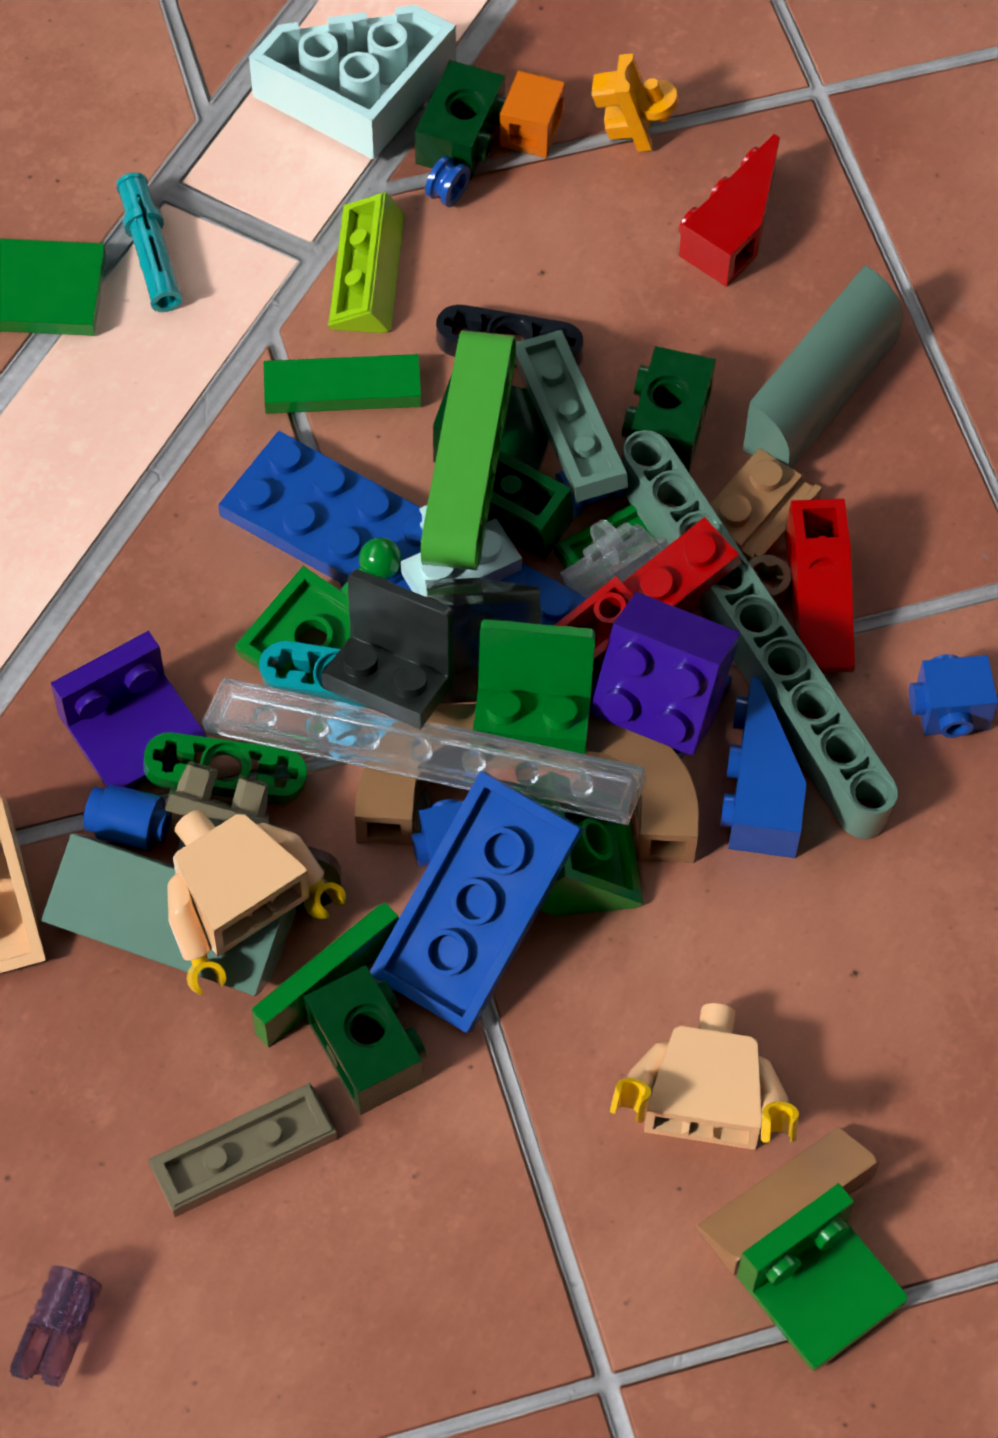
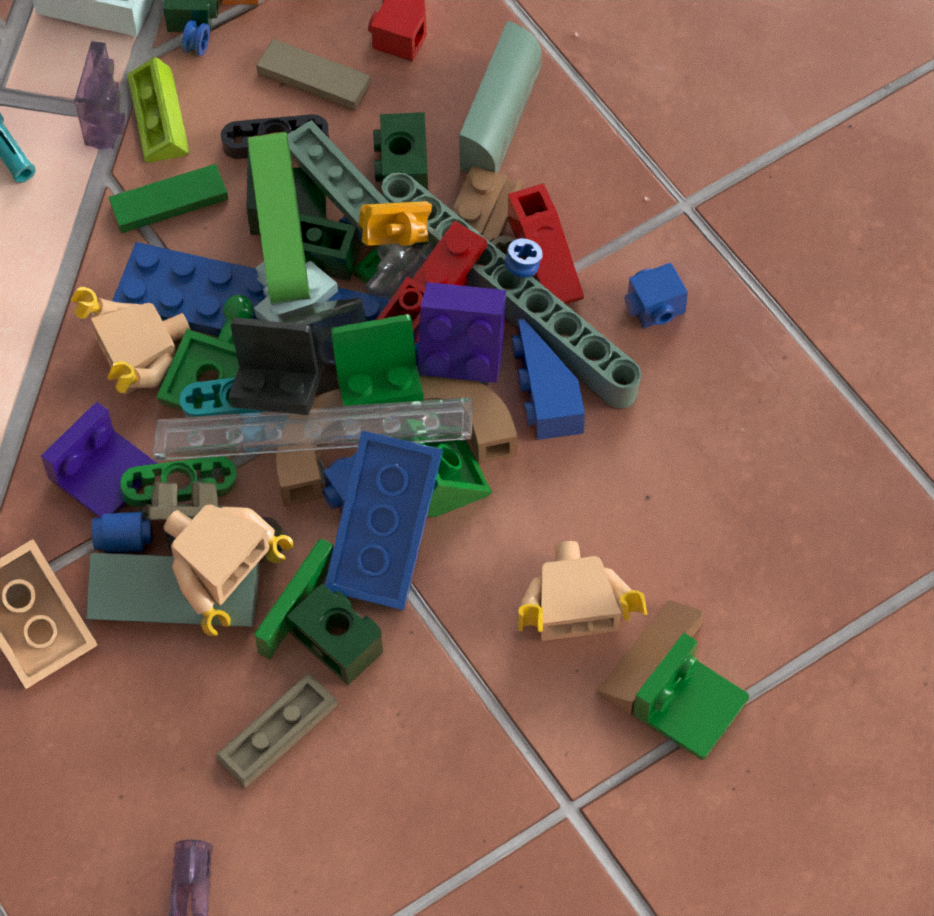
camera: 15 degrees left, 0 degrees up
(228, 558) = (132, 339): none -> light nougat torso
(289, 227) = (99, 100): none -> clear purple plate
(588, 270) = (313, 74): none -> dark tan tile
(622, 499) = (394, 223): none -> light orange hips
(777, 606) = (527, 249): none -> blue bush

